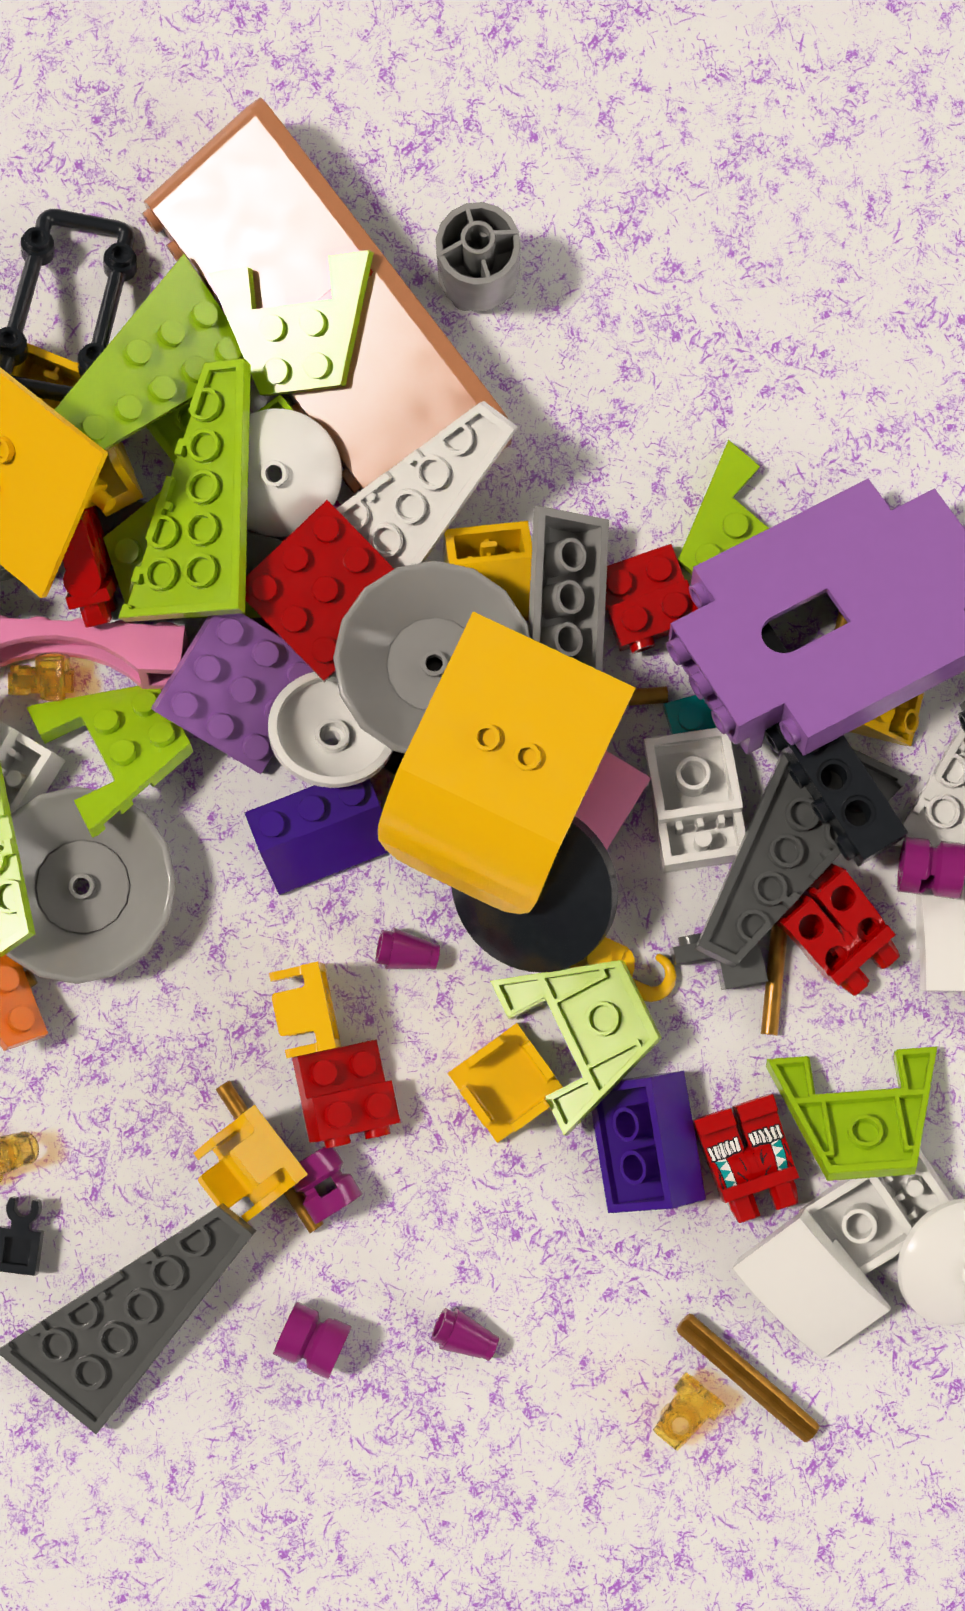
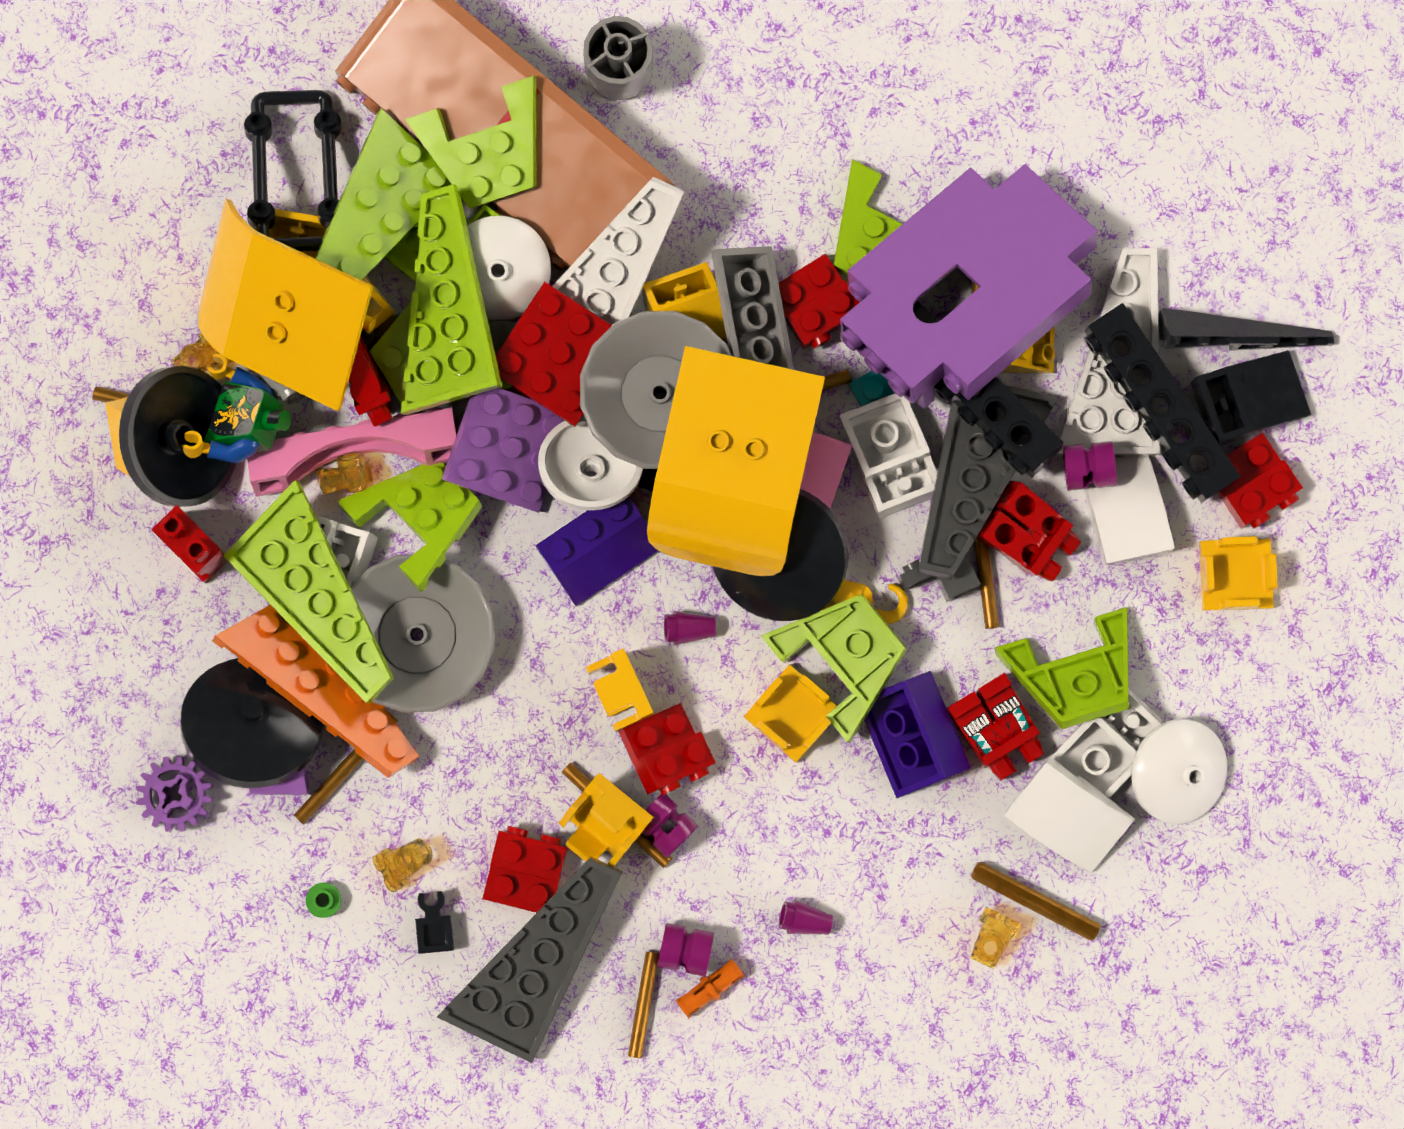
camera: 20 degrees left, 0 degrees up
(143, 1197) = (524, 869): none -> red plate
(247, 1393) = (643, 1004): none -> pearl gold bar
(331, 1392) = (710, 988): none -> orange pin

